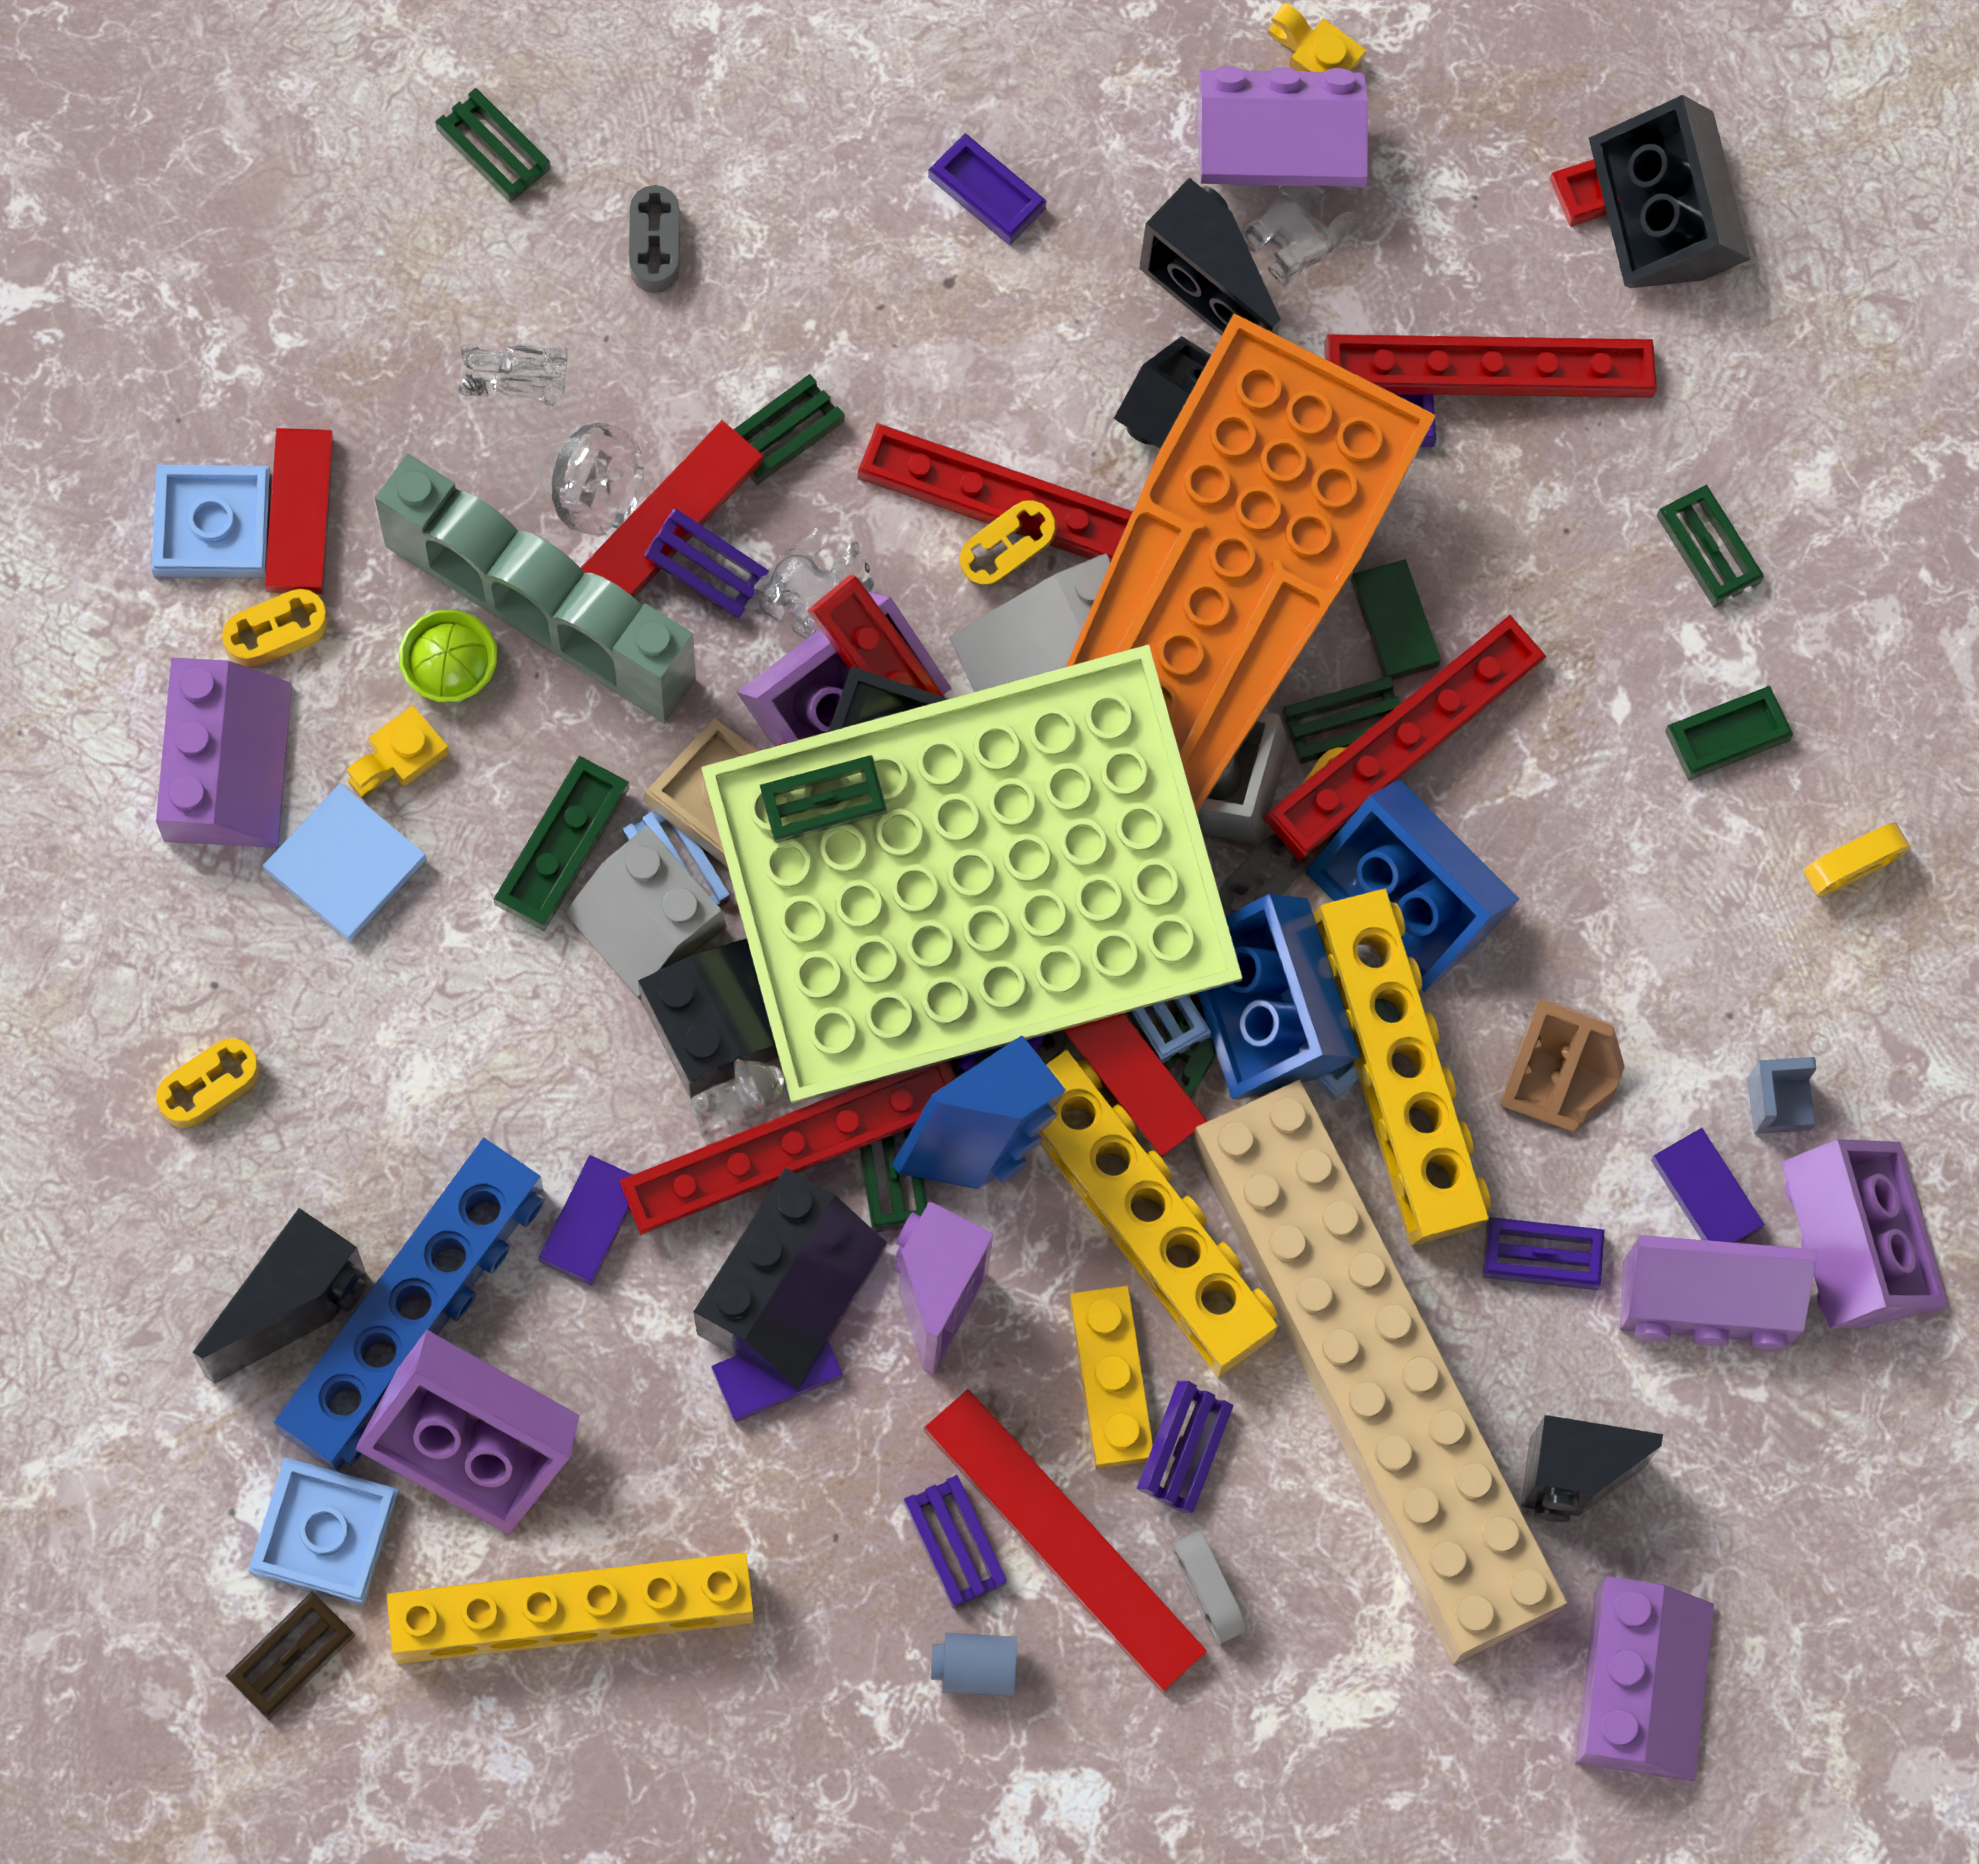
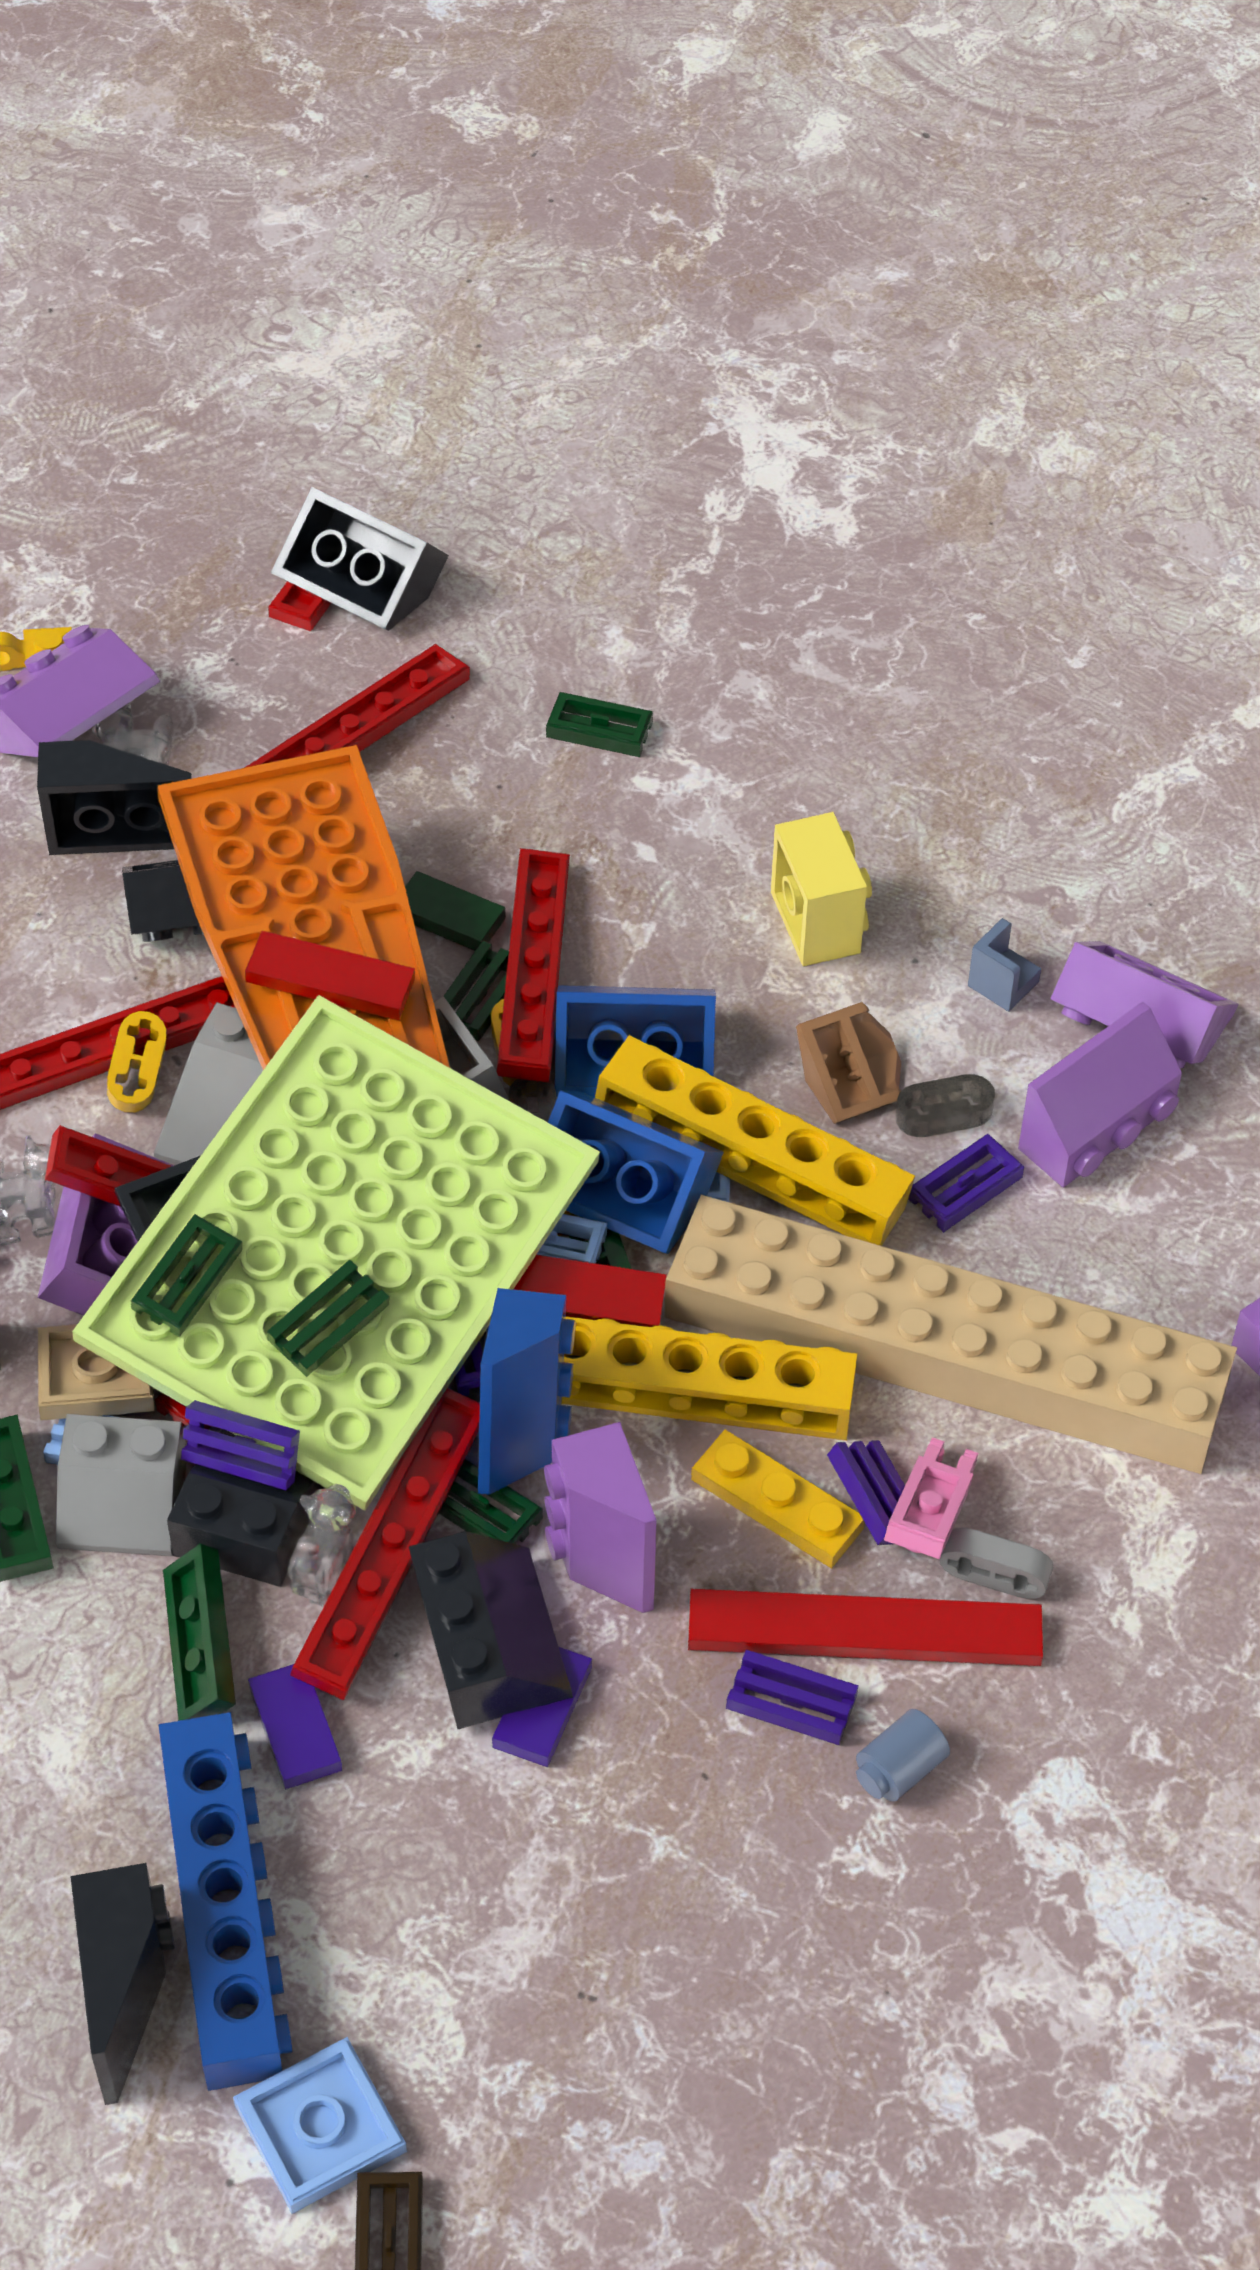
camera: 40 degrees left, 20 degrees down
(469, 1432) = (365, 1935): medium lavender slope -> none
(570, 1608) = (569, 1994): yellow brick -> none
(586, 1088) = (199, 1634): none -> dark green plate
(740, 972) = (240, 1454): none -> dark purple tile
(901, 907) = (312, 1303): none -> dark green tile
(1193, 624) = (332, 973): none -> red tile
(1207, 1495) = (931, 1501): none -> bright pink hinge
(1580, 1463) = (1141, 1260): black slope -> none
(1606, 1159) = (945, 1105): none -> clear smoke beam
(1694, 894) = (819, 888): none -> light yellow brick
(1707, 1190) = (1013, 1058): dark purple tile -> none
(1729, 733) = (730, 811): dark green tile -> none
(1856, 859) = (891, 810): yellow beam -> none

